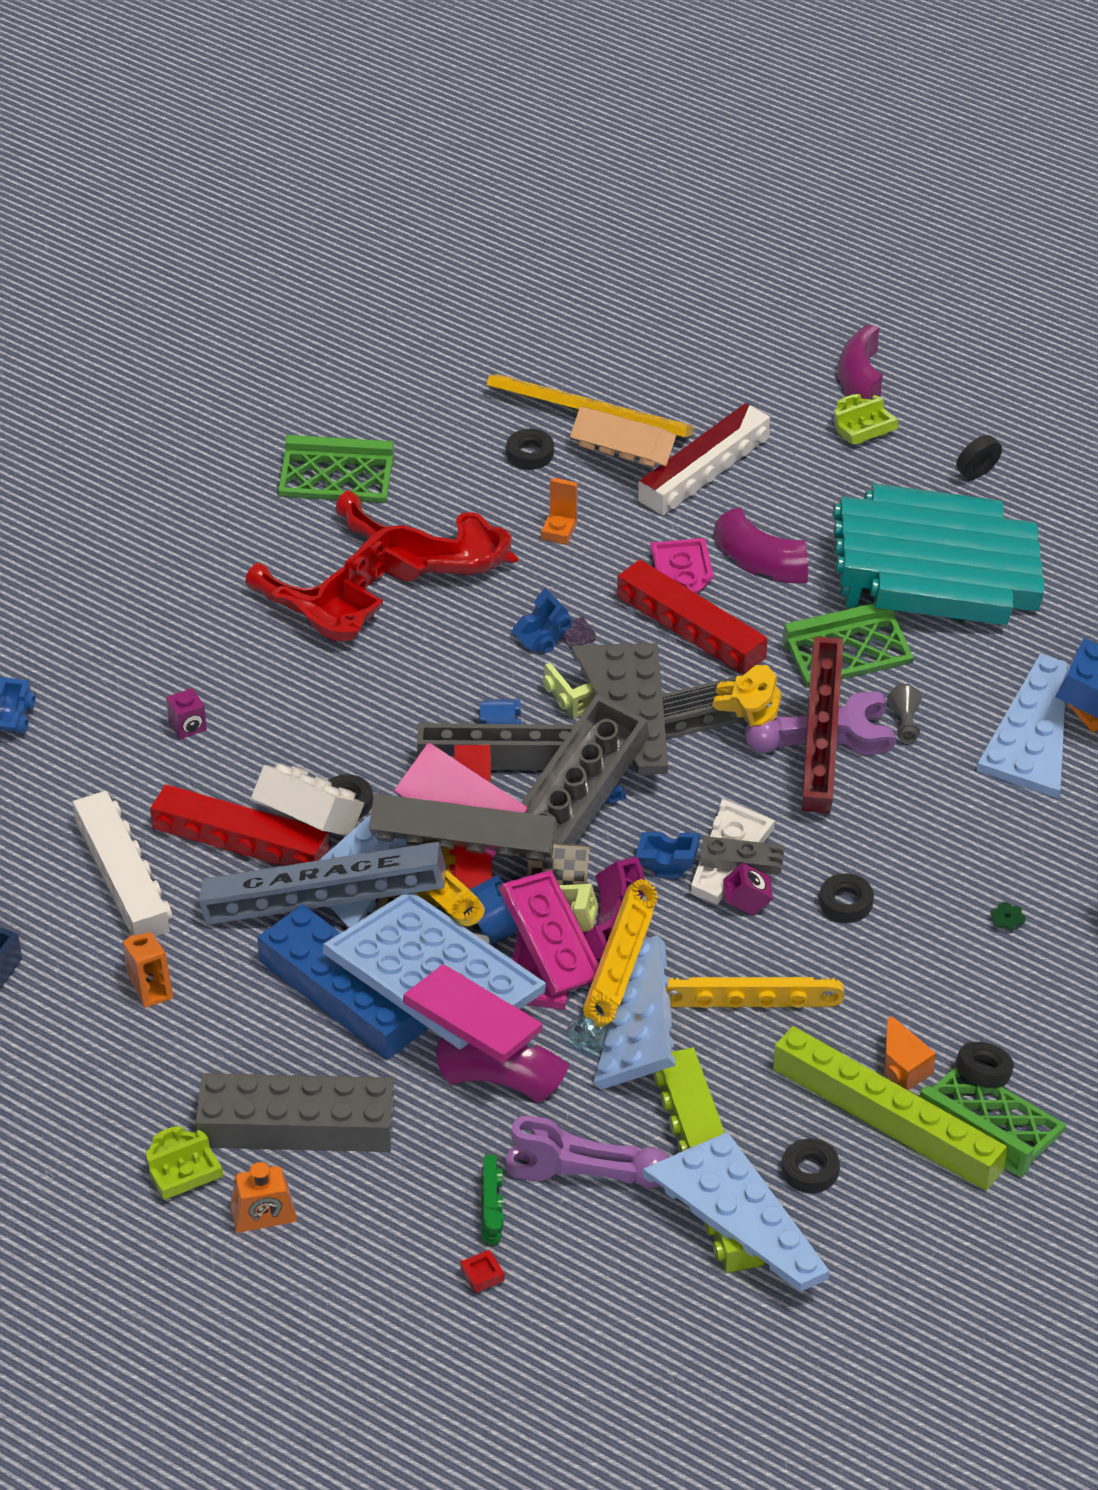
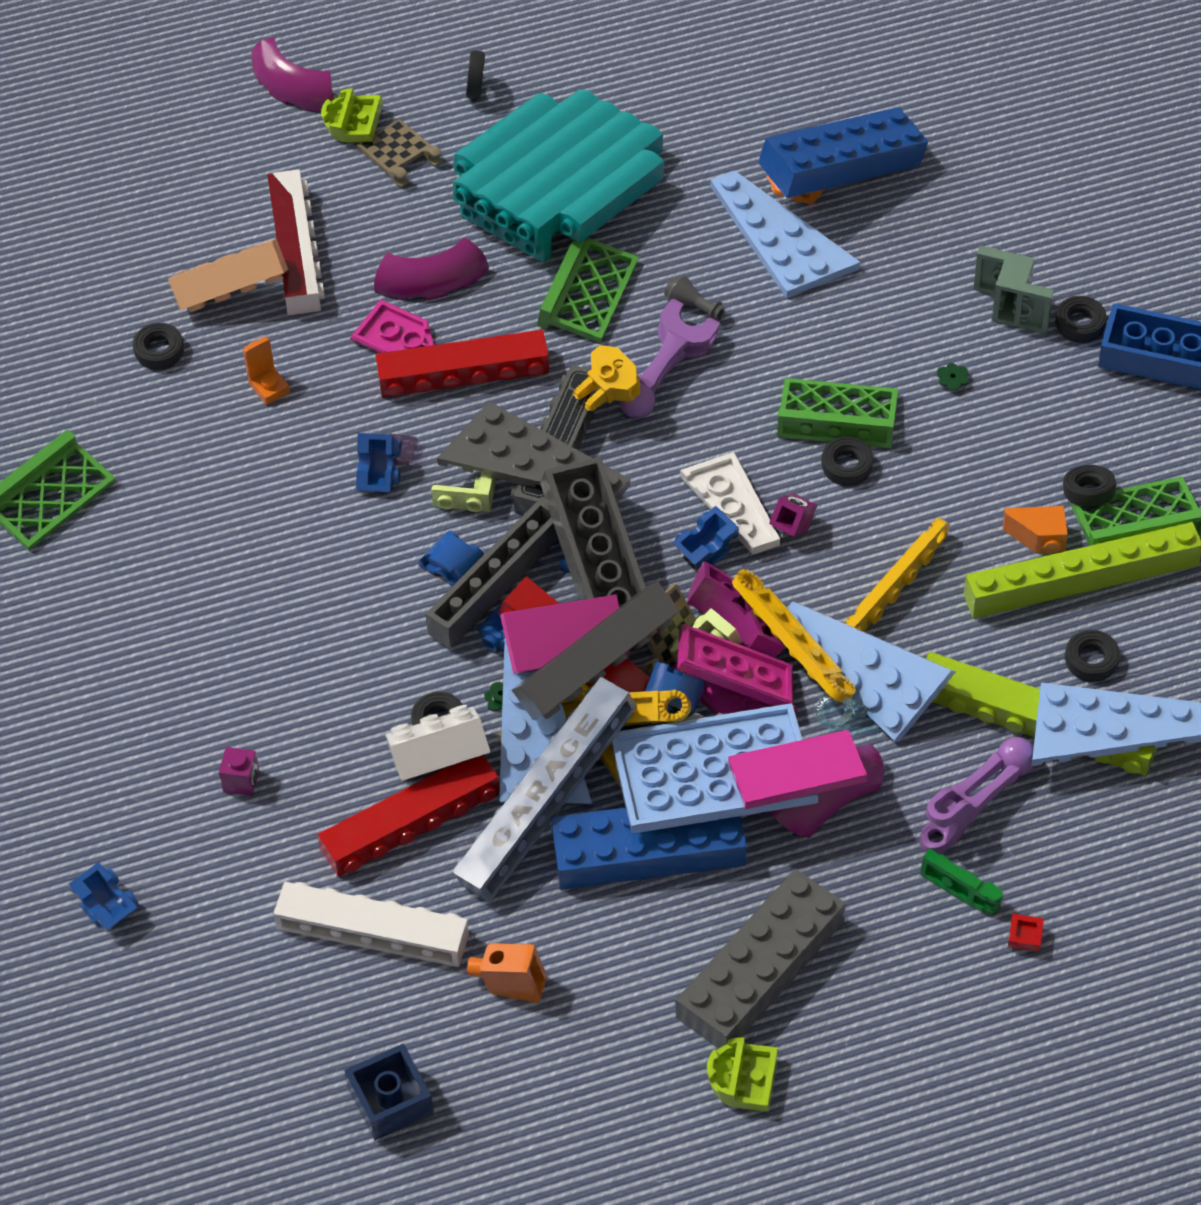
camera: 50 degrees left, 10 degrees up
(261, 1199) = (840, 1033): orange torso -> none
(342, 603) = (202, 503): red animal -> none
(576, 401) = (151, 275): yellow tile -> none
(731, 853) = (756, 495): dark grey hinge -> none
(822, 725) = (684, 354): dark red brick -> none
(862, 462) = (397, 147): none -> dark tan flag
(887, 889) = (825, 427): none -> bright green fence

